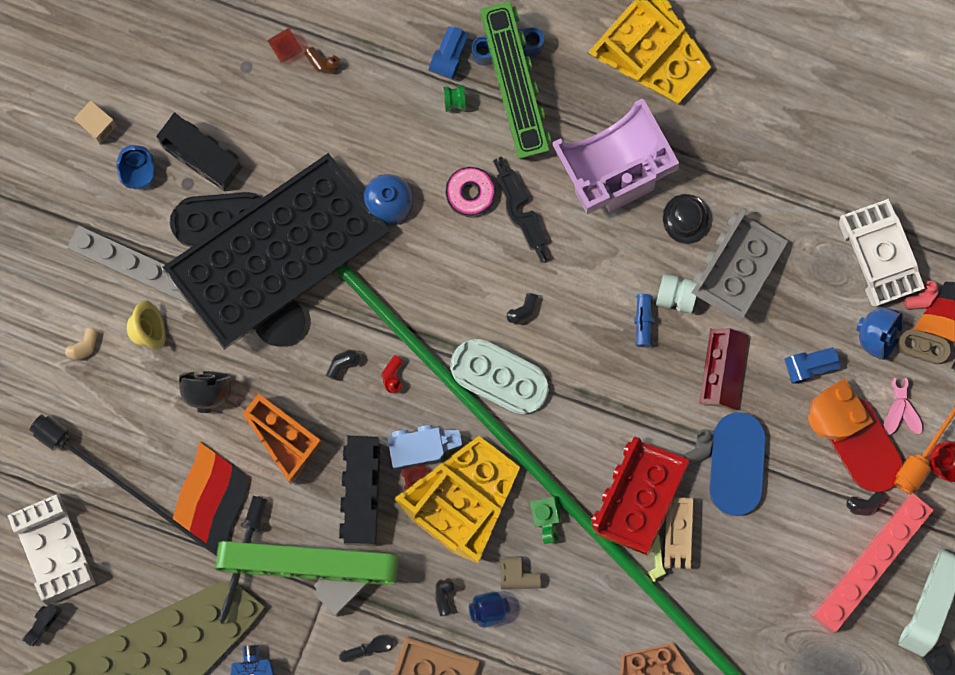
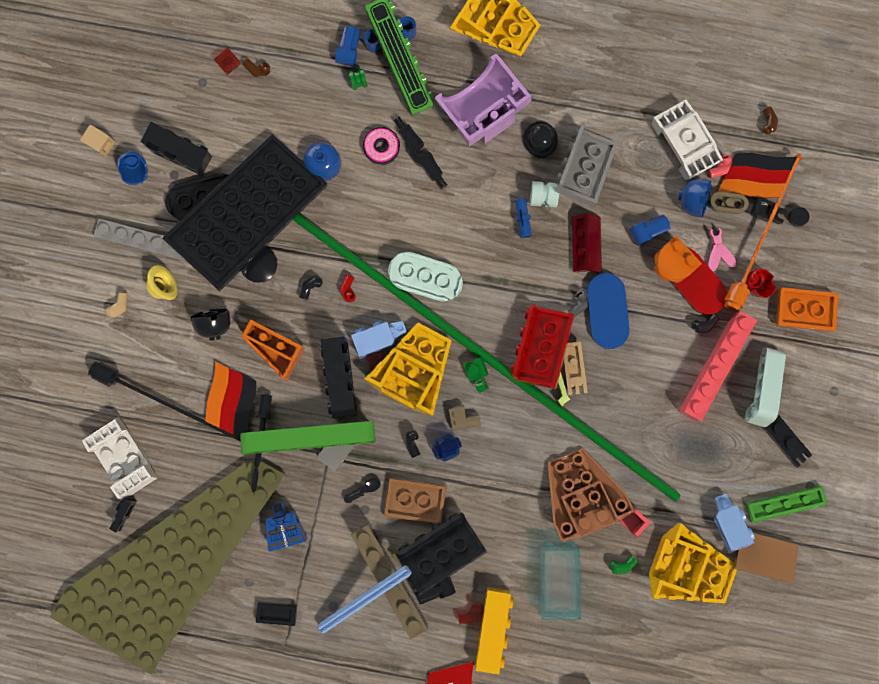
camera: 10 degrees left, 5 degrees up
(524, 312) = (436, 227): black arm -> none

